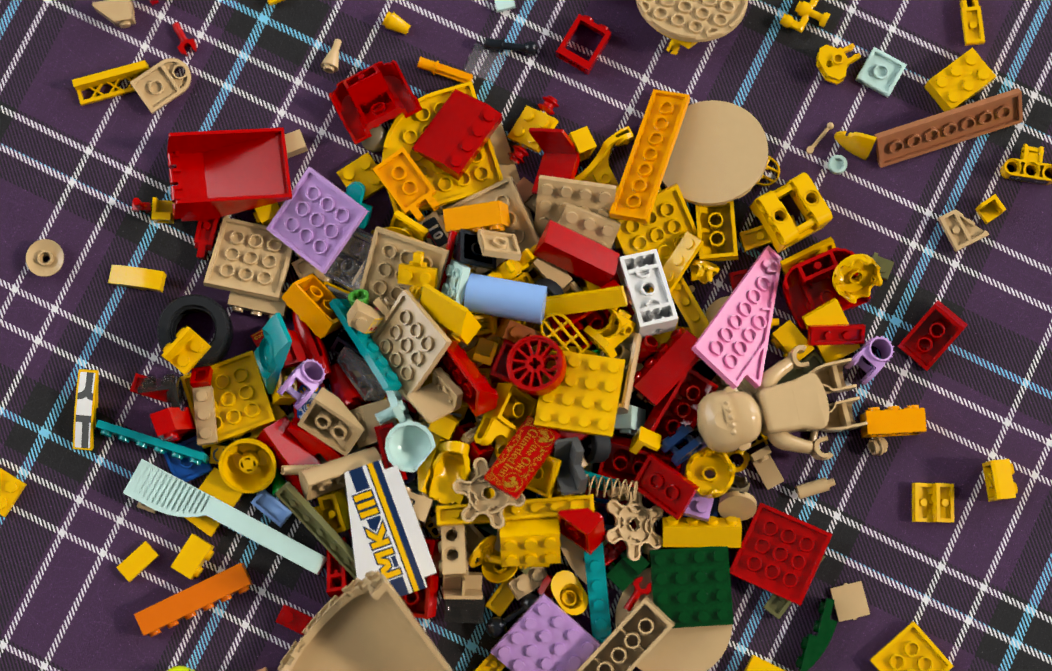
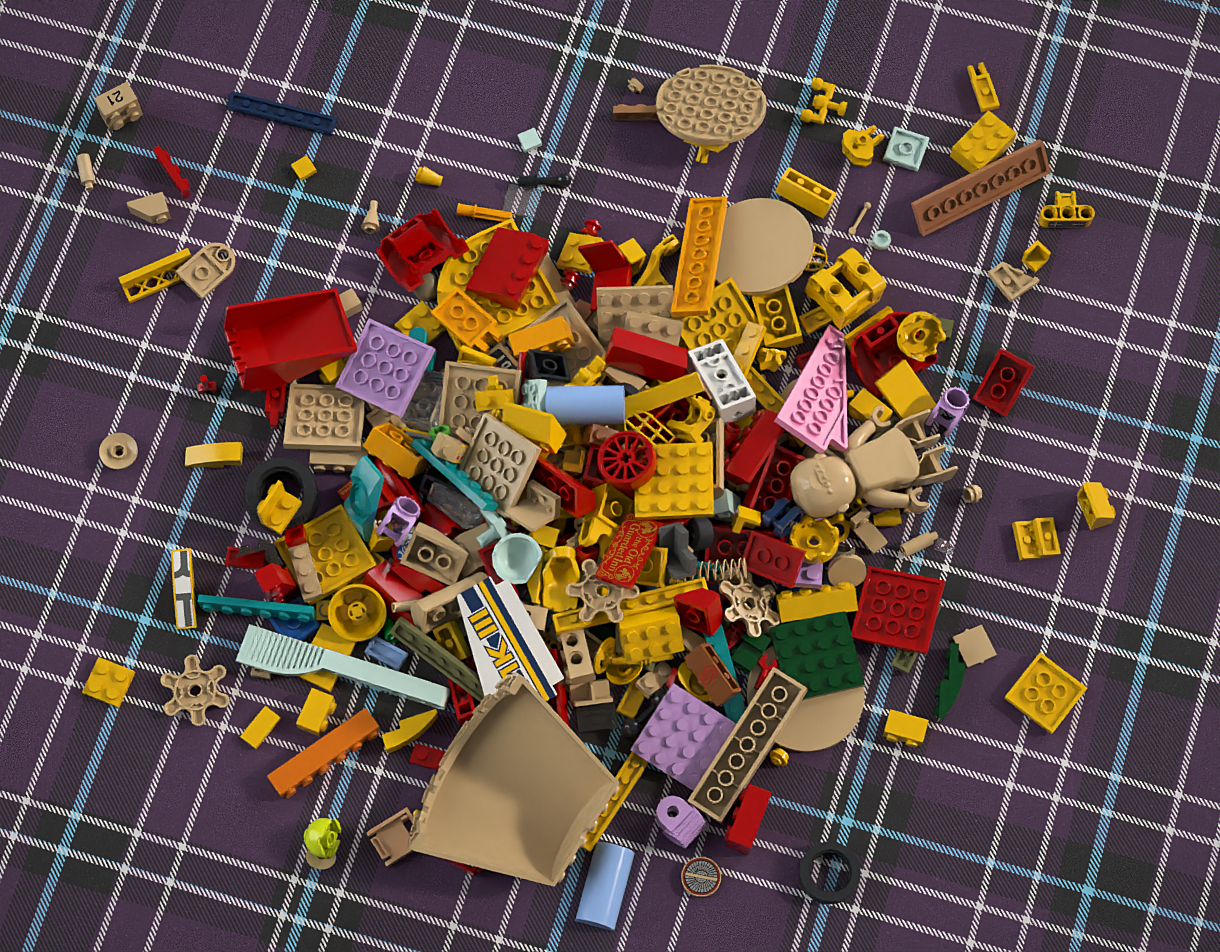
camera: 15 degrees left, 10 degrees down
(67, 517) = (193, 677): none -> tan plate
(162, 211) = (229, 389): yellow panel -> none
(184, 41) = (221, 225): red bar -> none
(279, 591) = (409, 730): none -> yellow slope
(499, 244) = (569, 356): tan tile -> none
(575, 60) = (609, 183): red window -> none
(584, 591) = (712, 674): none -> dark orange brick
(770, 103) = (805, 192): none -> yellow brick
(788, 457) = (888, 518): none -> yellow cone
(836, 334) = (911, 394): red tile -> none
(838, 495) = (943, 546): none -> clear tile
(856, 143) = (895, 215): yellow brick -> none
(893, 421) = (983, 466): light orange brick -> none

